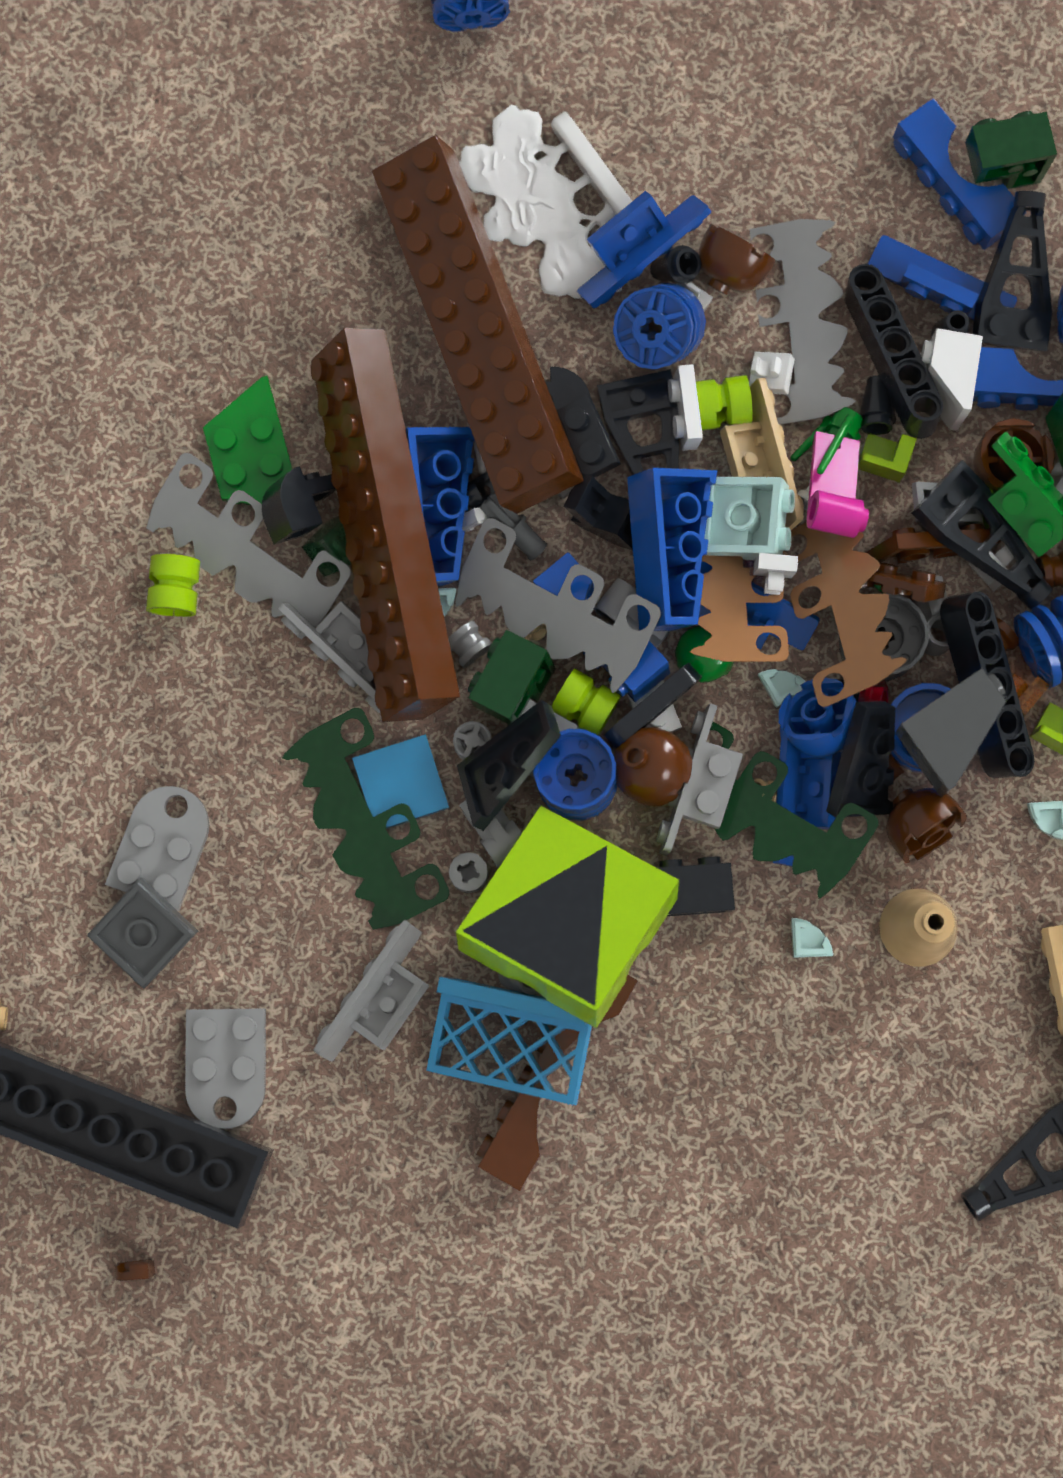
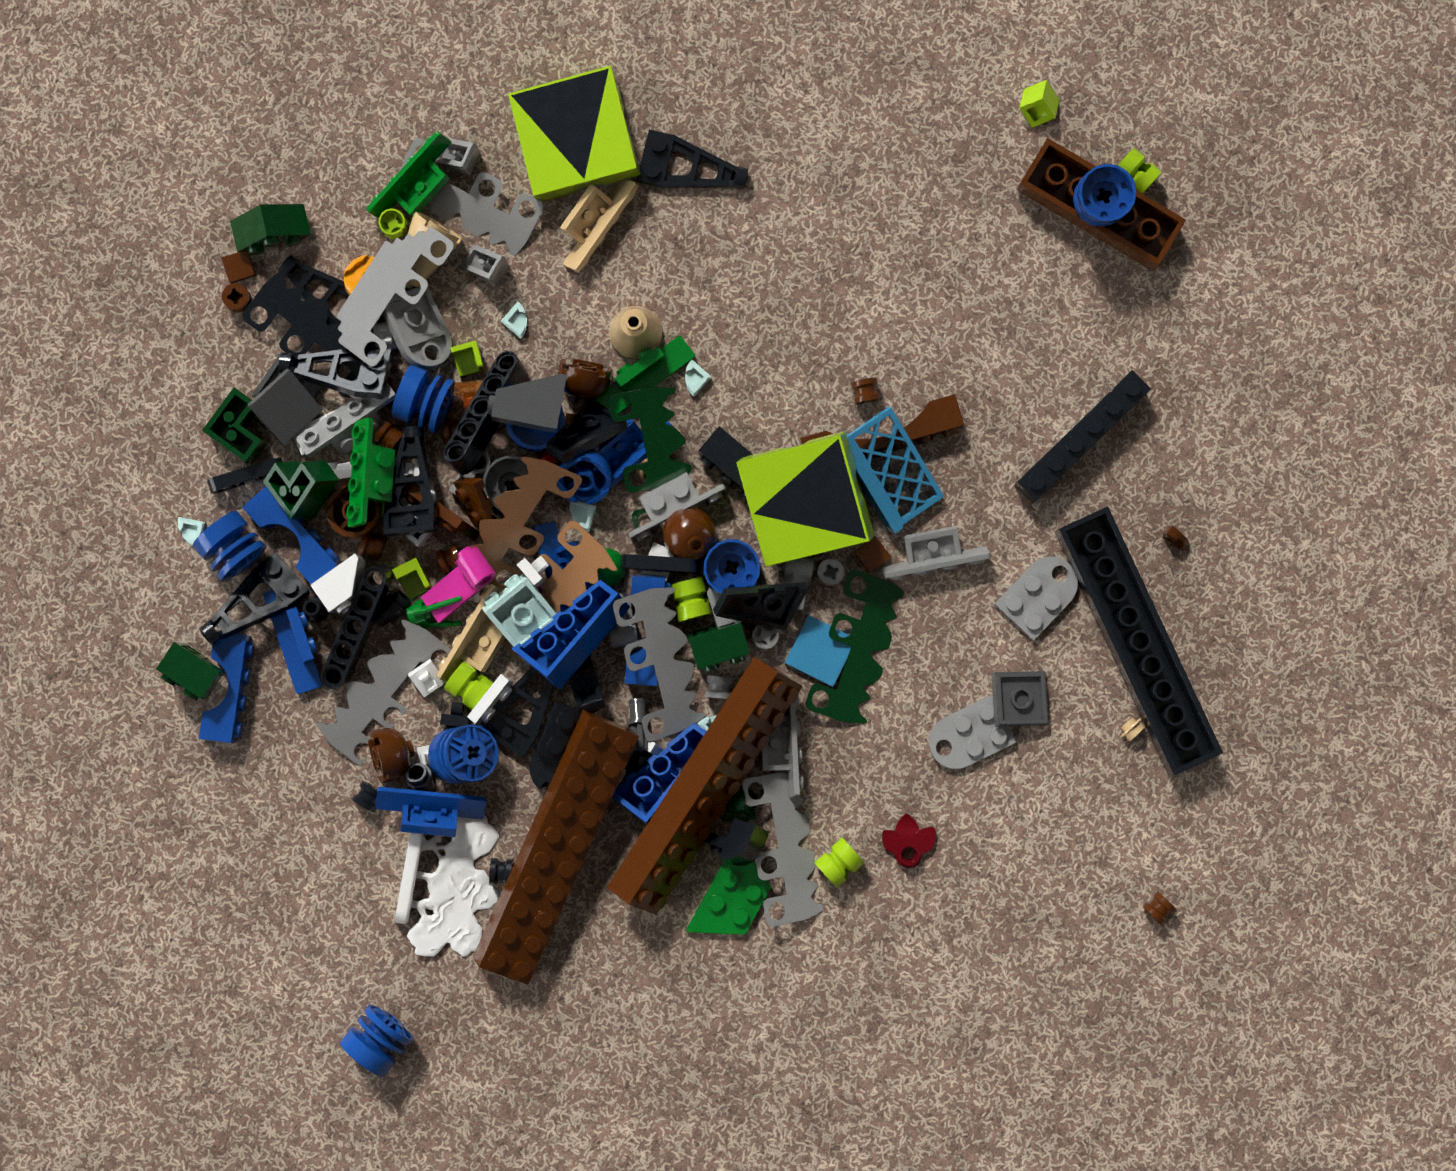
camera: 140 degrees left, 5 degrees up
(125, 683) = (908, 837): none -> dark red plate
(338, 1283) = (1082, 436): none -> black brick
(440, 935) = (872, 554): none -> reddish brown tile
(510, 256) = (499, 870): none -> black wheel
(618, 1102) = (865, 391): none -> reddish brown wheel
(703, 359) = (455, 718): none -> black tile
(714, 197) = (366, 797): none -> black wheel
(864, 897) = (649, 371): none -> green bracket
(876, 504) = (447, 558): none -> reddish brown wheel
(958, 445) = (372, 546): none -> reddish brown wheel

